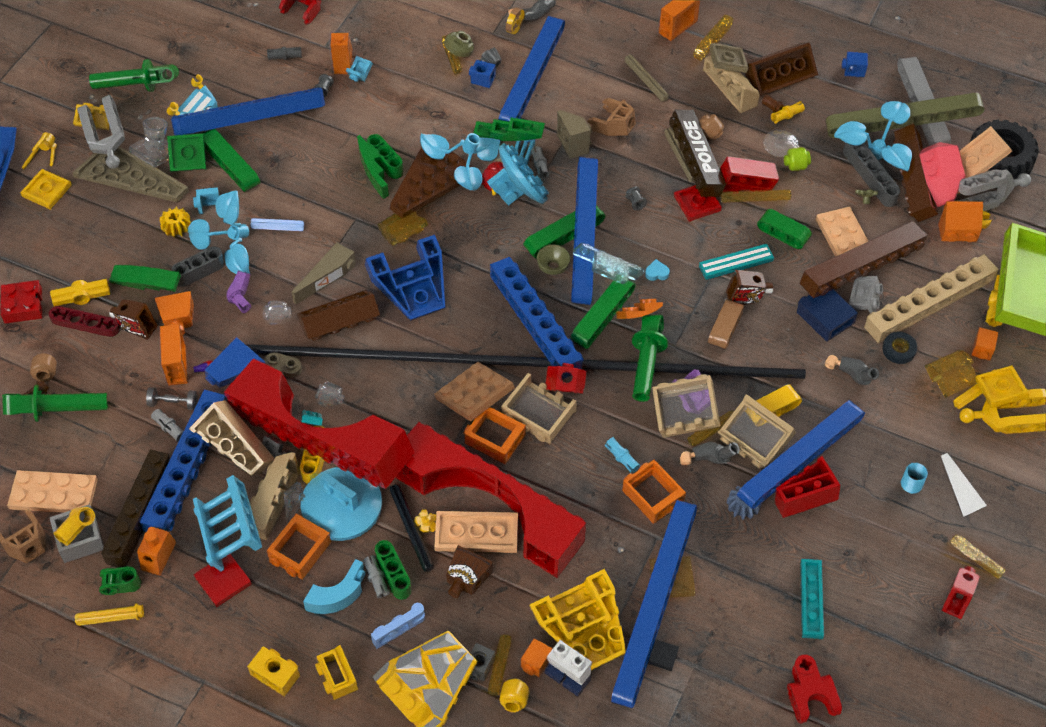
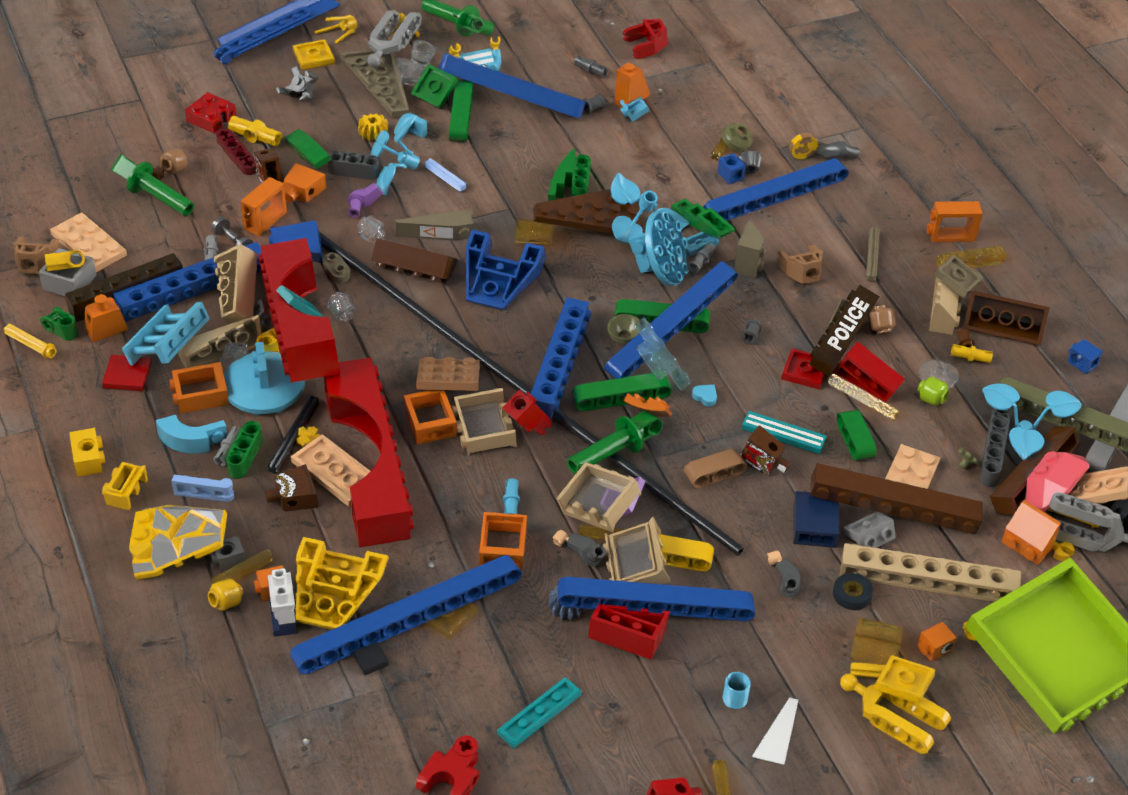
camera: 40 degrees right, 10 degrees down
(73, 223) = (301, 84): none -> dark grey piece

